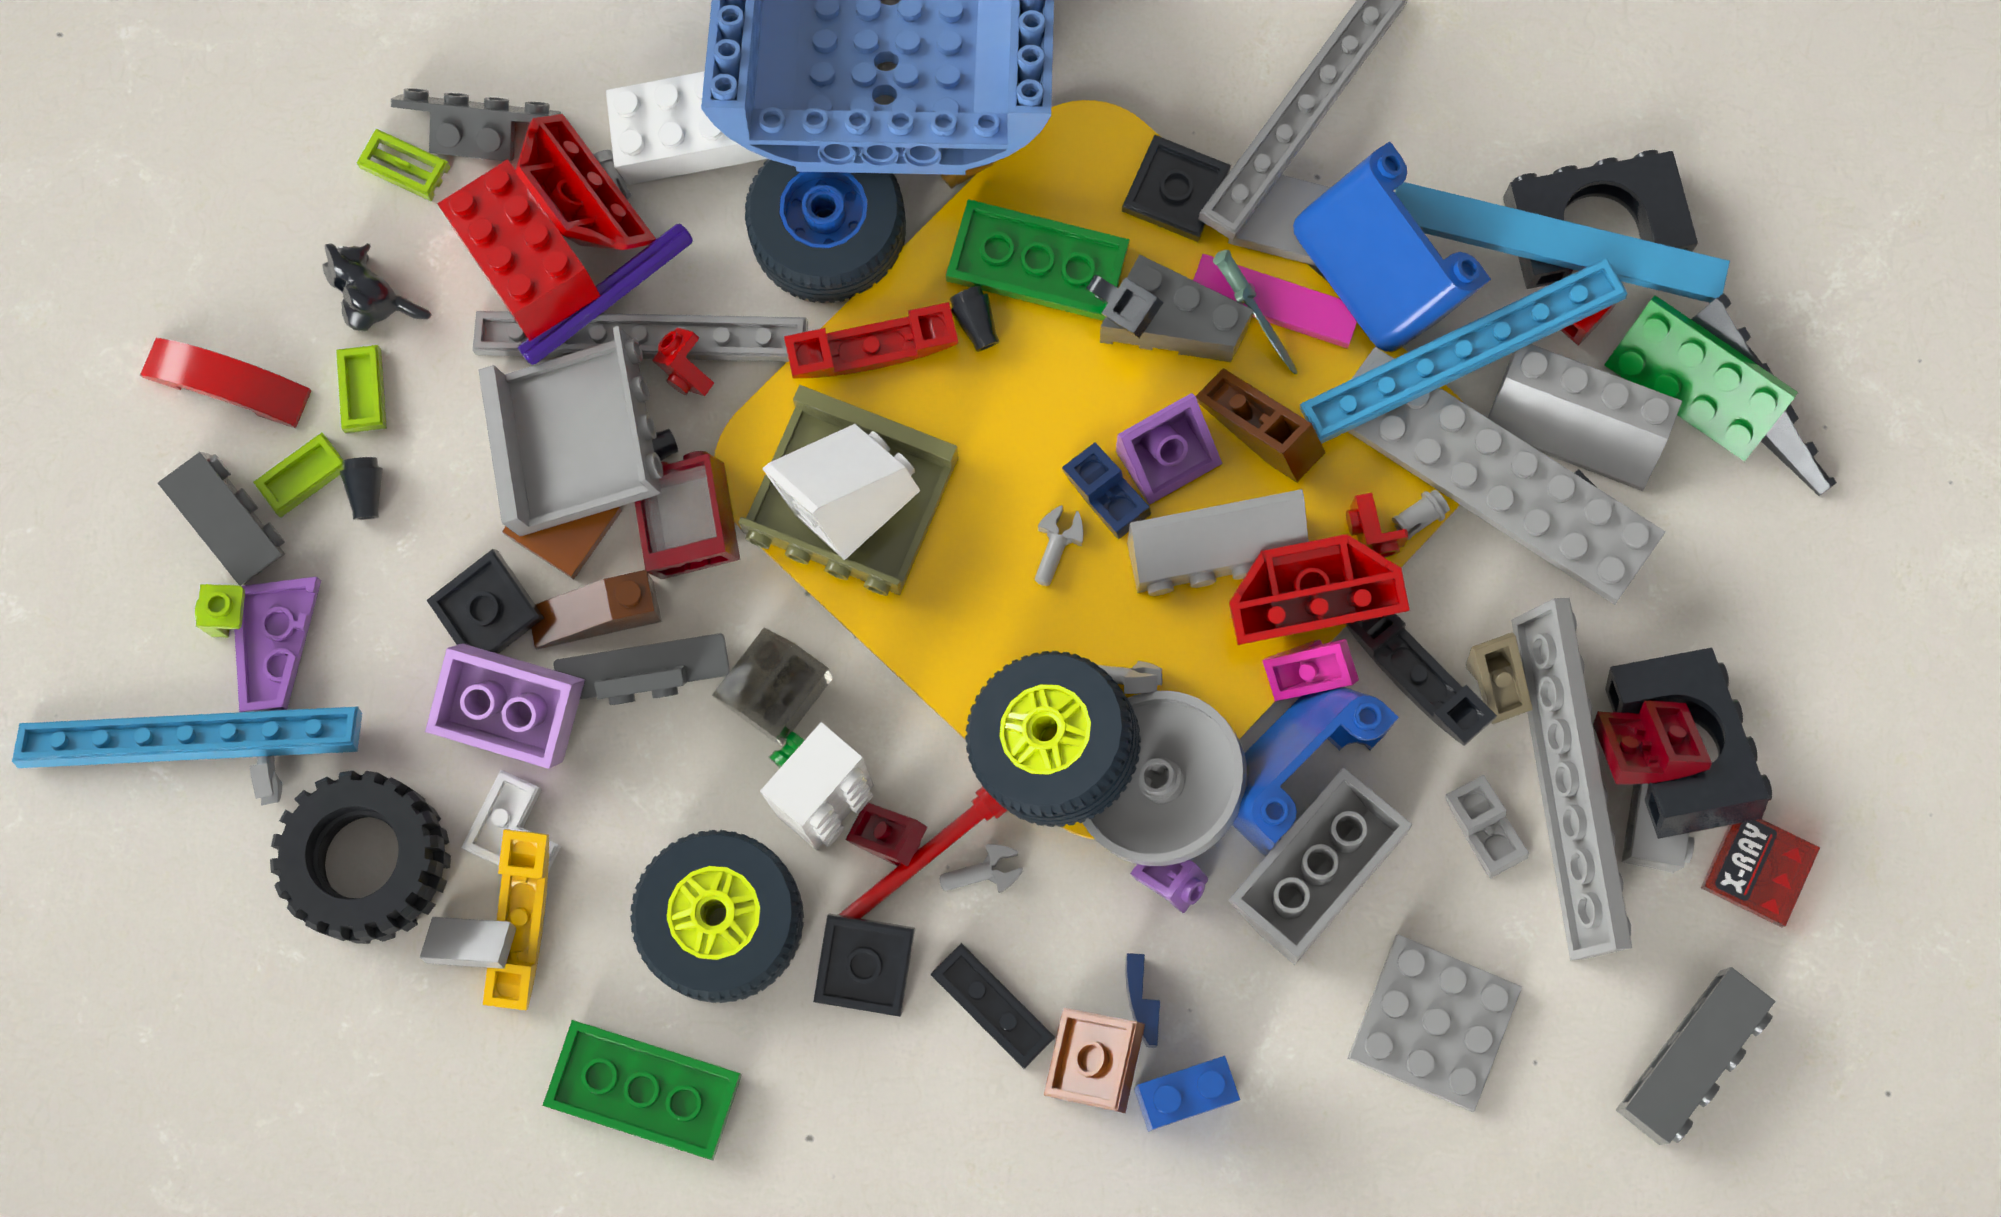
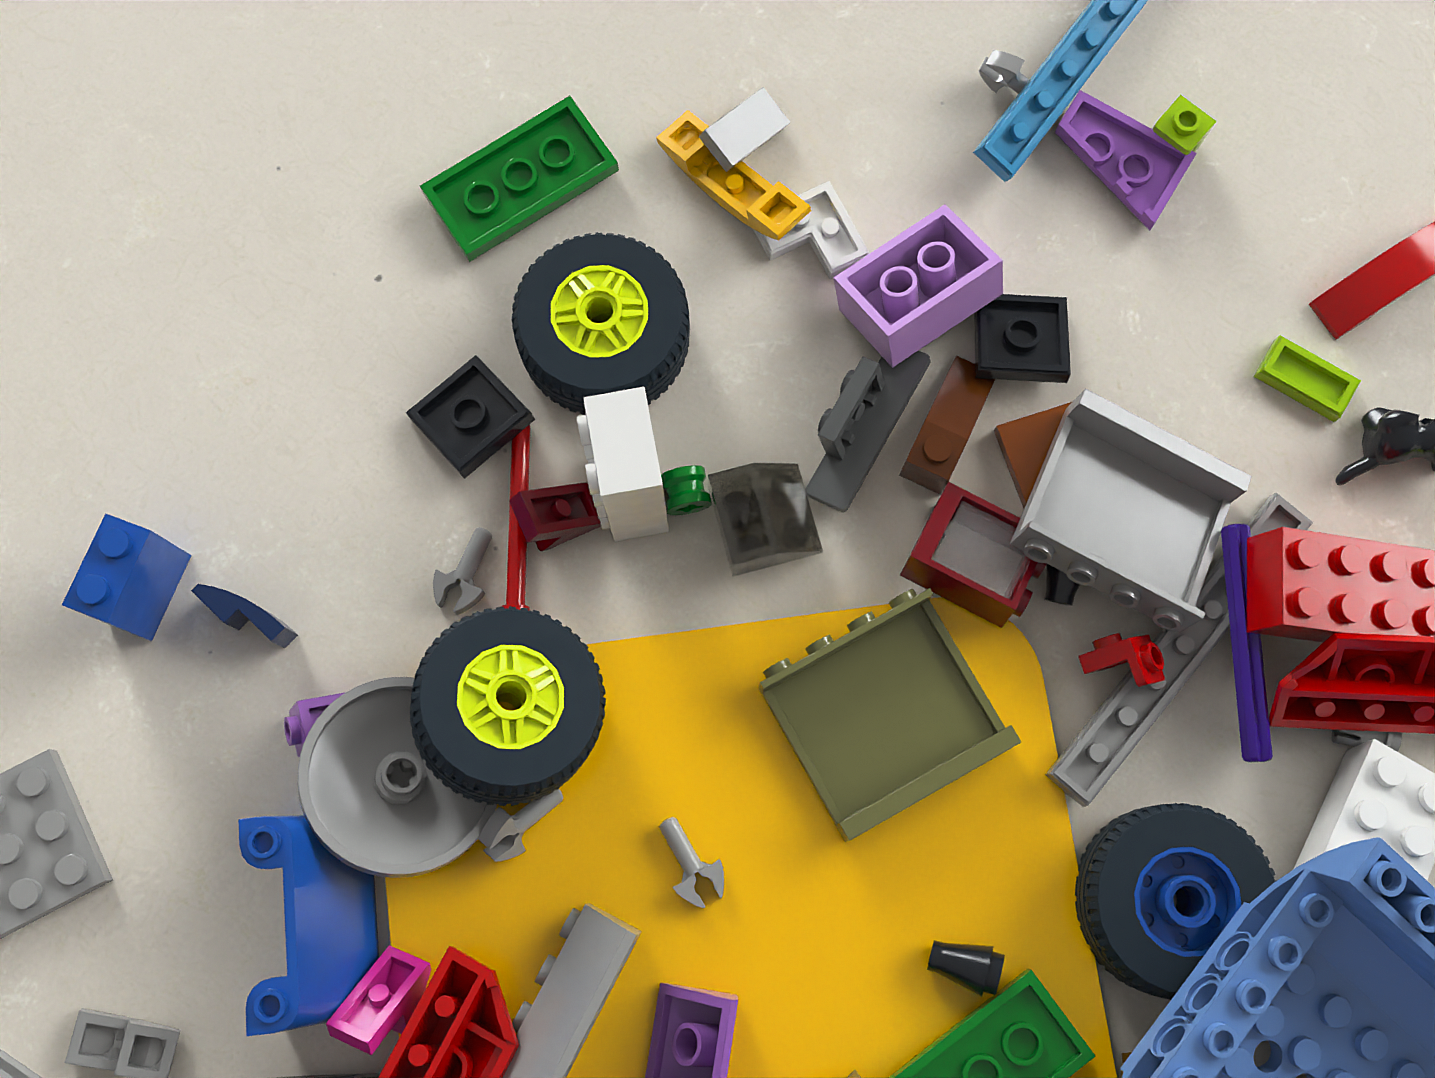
camera: 125 degrees right, 0 degrees up
(223, 516) = (1269, 182): dark grey wedge -> none
(300, 475) = (1260, 278): lime tile -> none
(315, 824) = (889, 44): black tyre -> none
(362, 486) = (1211, 315): black cone -> none
(844, 486) = (889, 703): white slope -> none
(871, 345) = (1014, 845): red slope -> none
(992, 1006) = (351, 493): black tile -> none
(1094, 1060) = (229, 534): tile -> none
(1106, 490) = (704, 952): dark blue slope -> none
(1319, 865) = (204, 887): light grey slope -> none

